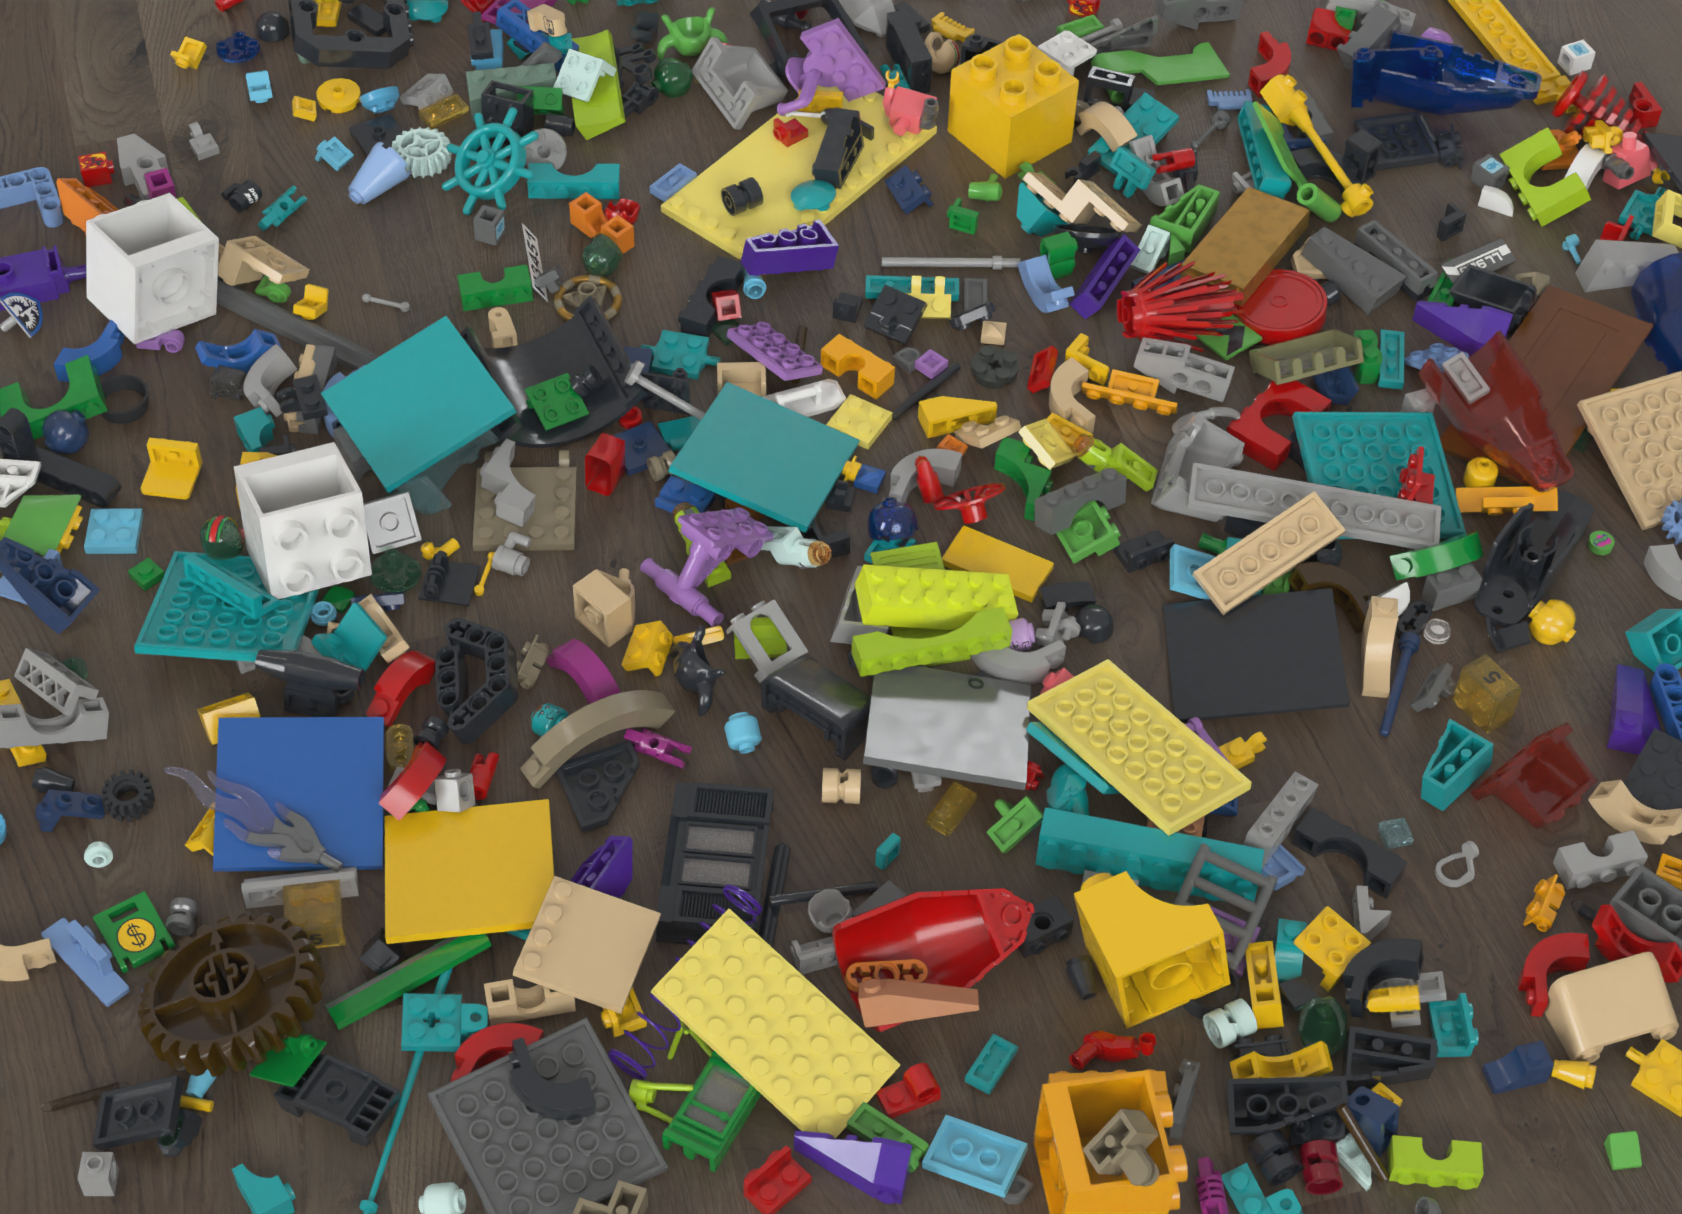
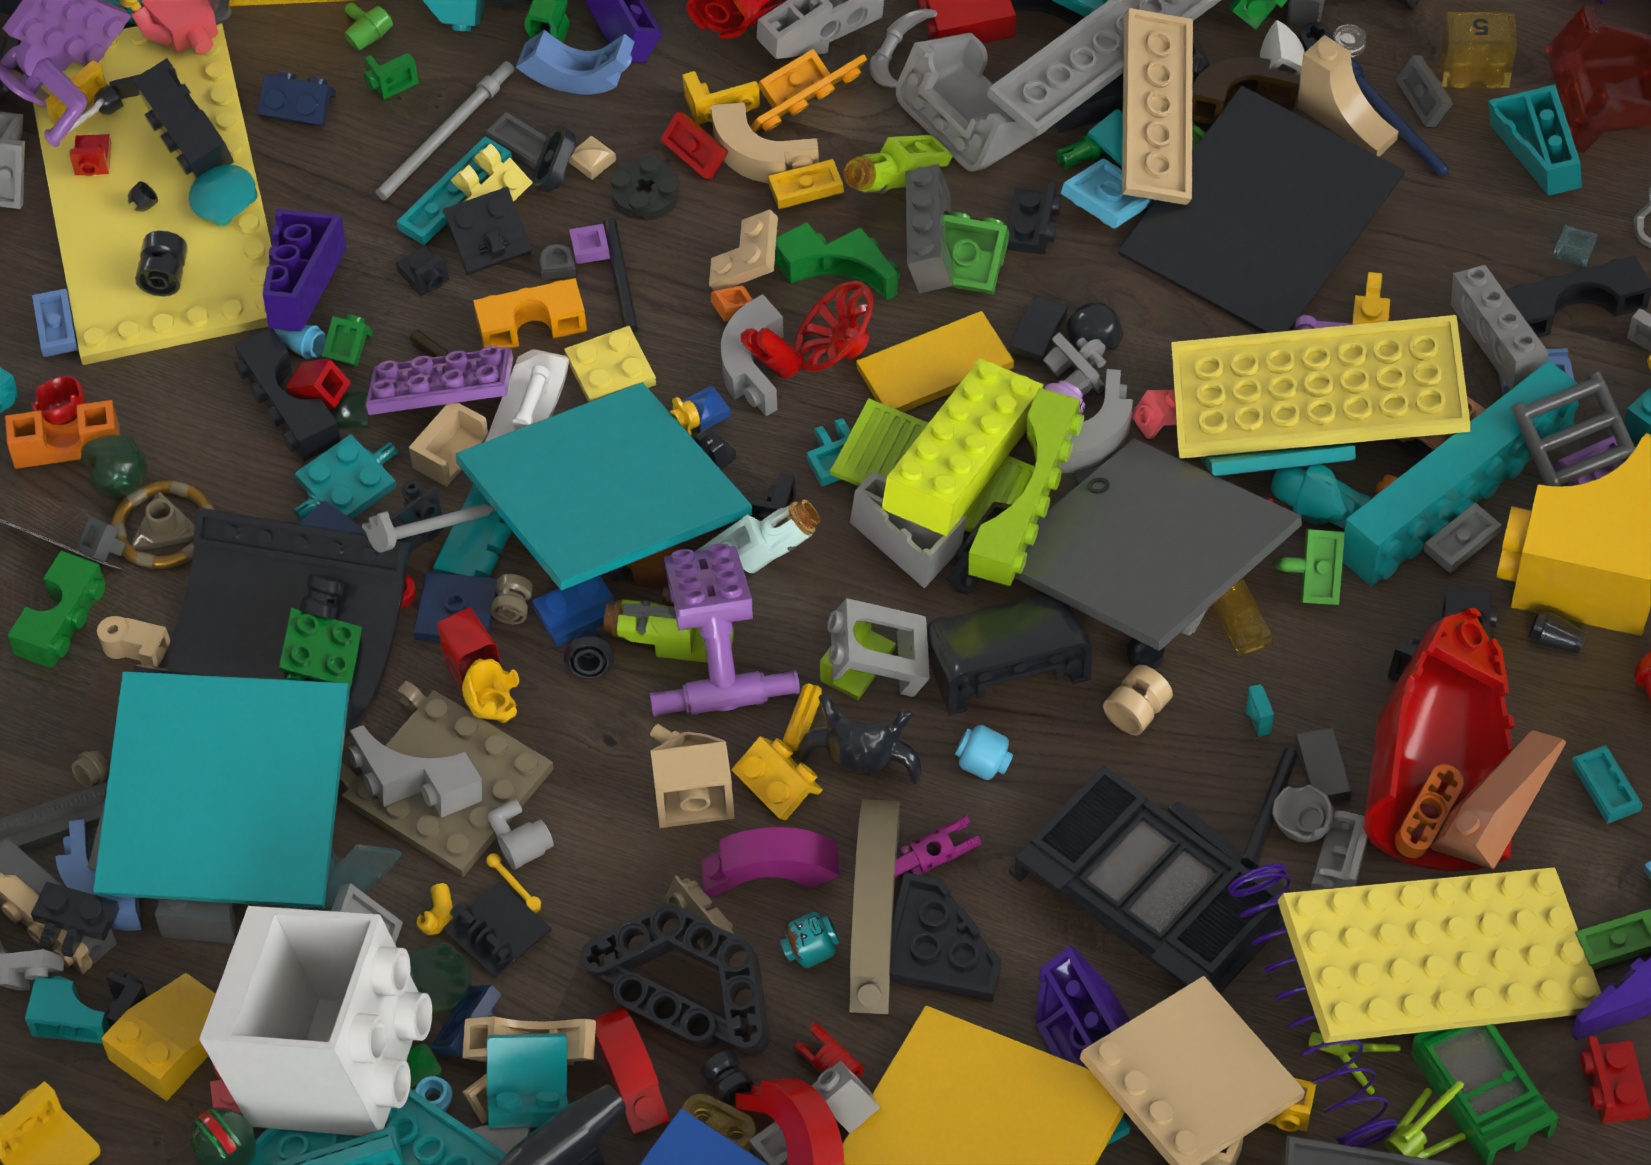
camera: 50 degrees left, 5 degrees up
(590, 487) = (487, 690): none -> yellow hair
(654, 518) = (589, 655): none -> black cone
(770, 300) = (346, 339): none -> green bracket
(780, 161) = (142, 196): none -> black hinge
(892, 519) = (805, 421): clear blue cylinder -> none
(911, 1093) = (1589, 881): red plate -> none
(948, 414) = (683, 271): yellow slope -> none
(1047, 444) = (819, 207): light yellow plate -> none

